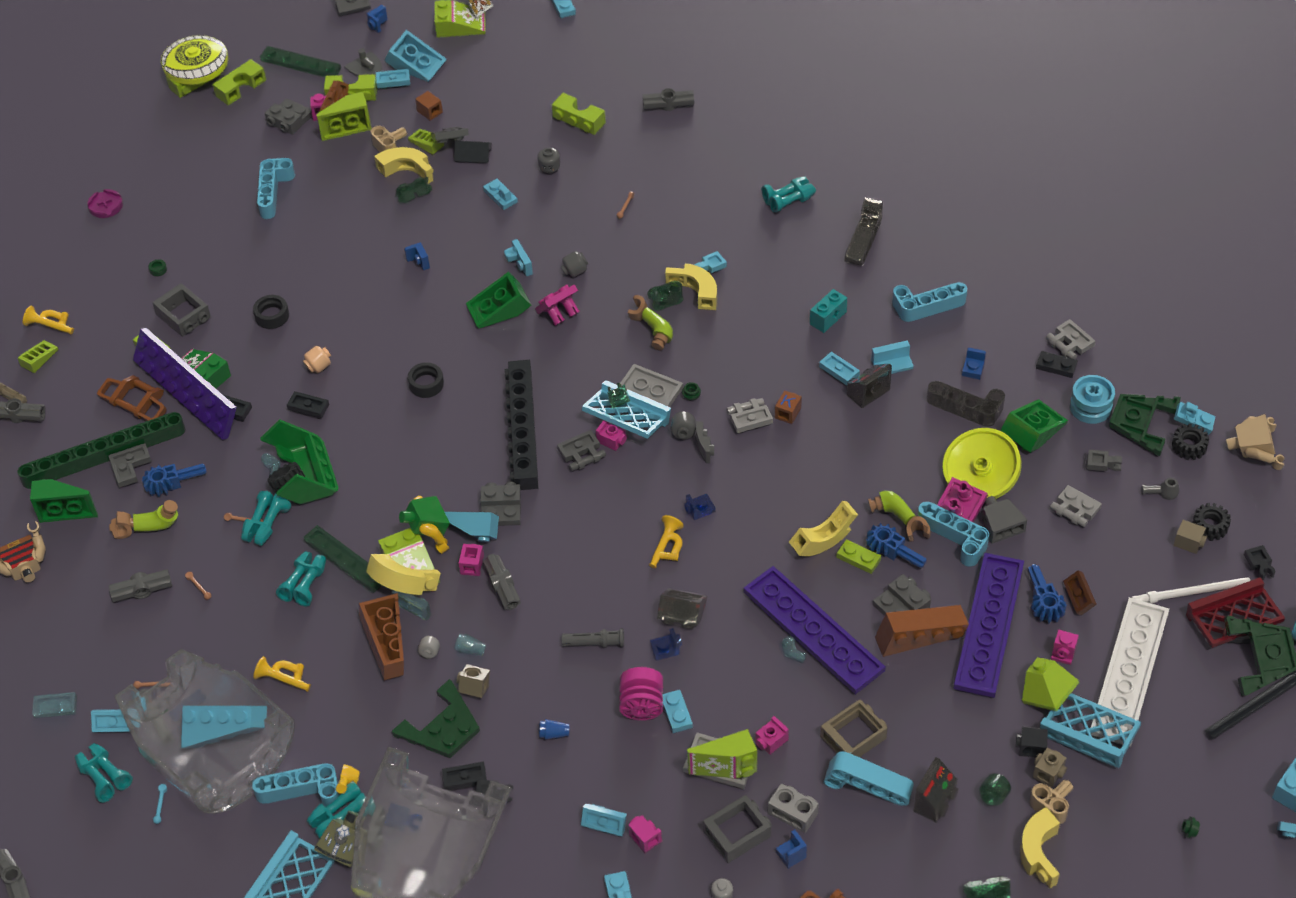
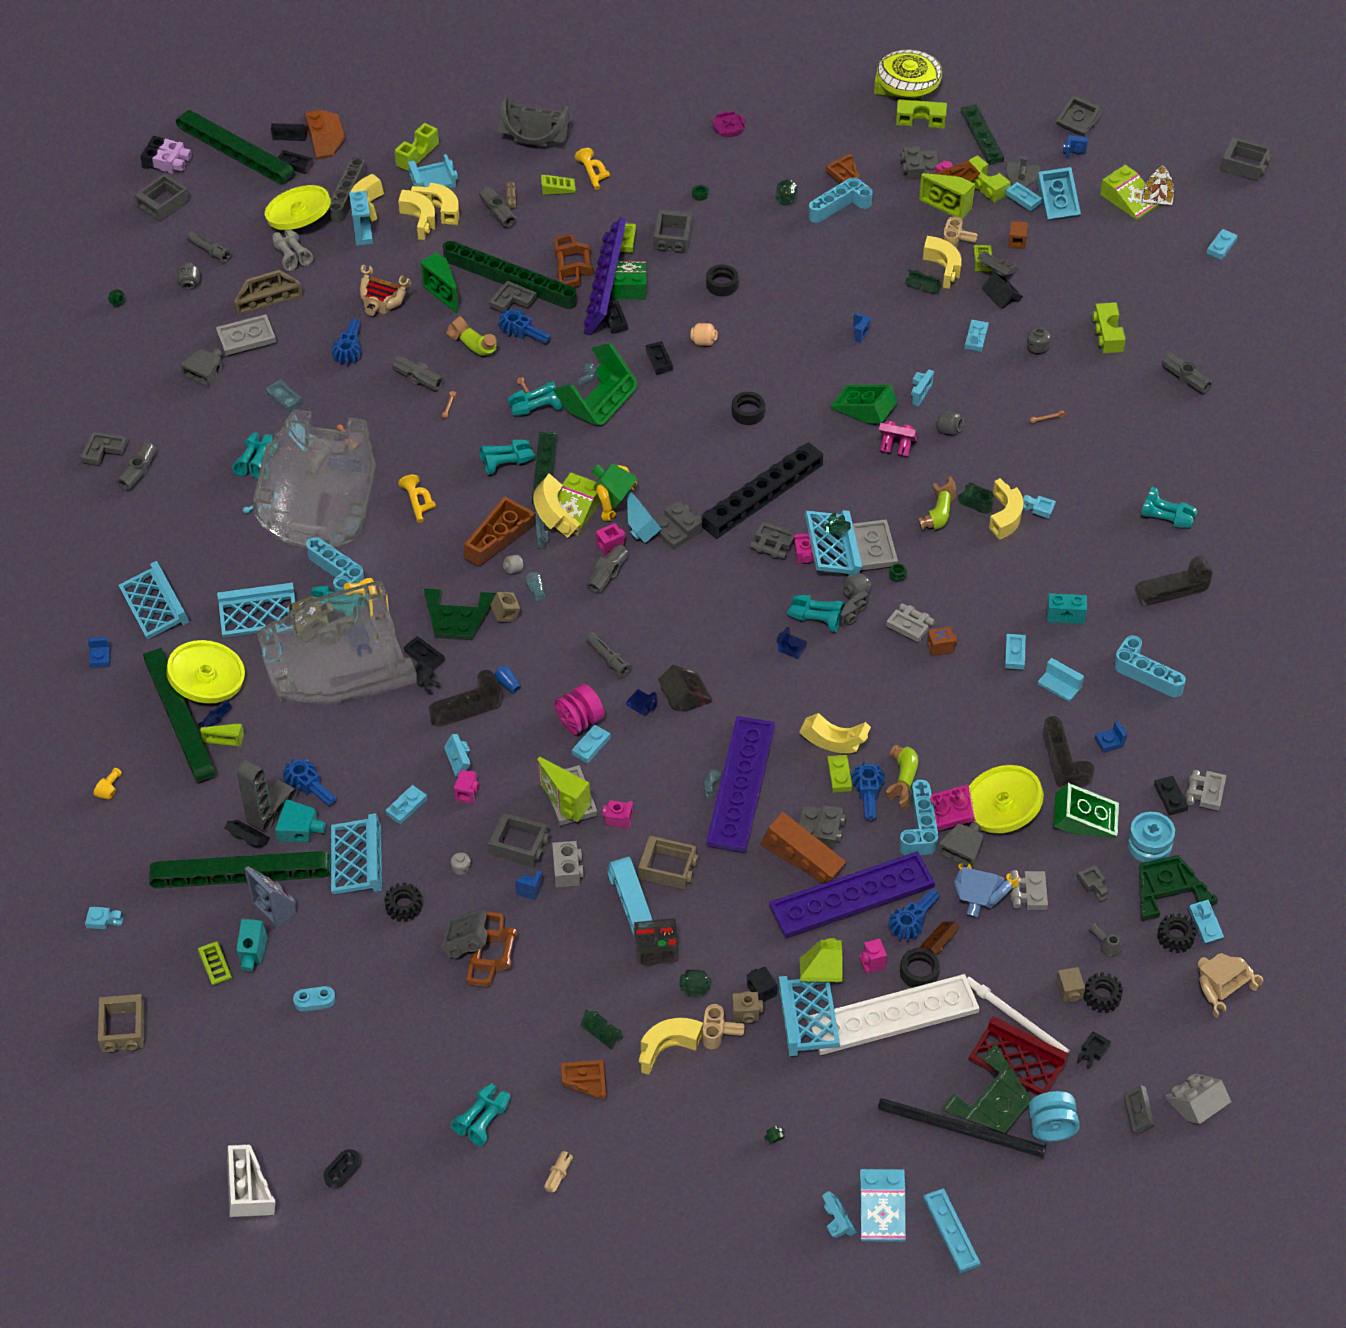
camera: 50 degrees right, 0 degrees up
(52, 621) = (347, 347): none -> blue gear
(214, 723) = (334, 482): medium azure wedge -> none
(225, 212) = (786, 192): none -> clear green head
(243, 164) = (843, 169): none -> dark orange wing
(283, 475) = (583, 385): black tyre -> none
(551, 778) = (468, 704): none -> clear smoke beam
(669, 472) = (802, 610): none -> teal piece
(670, 525) = (750, 637): yellow piece -> none
(870, 384) = (1014, 680): clear smoke slope -> none
(1056, 534) = (981, 888): none -> medium blue torso
(1100, 611) = (919, 954): none -> black tyre

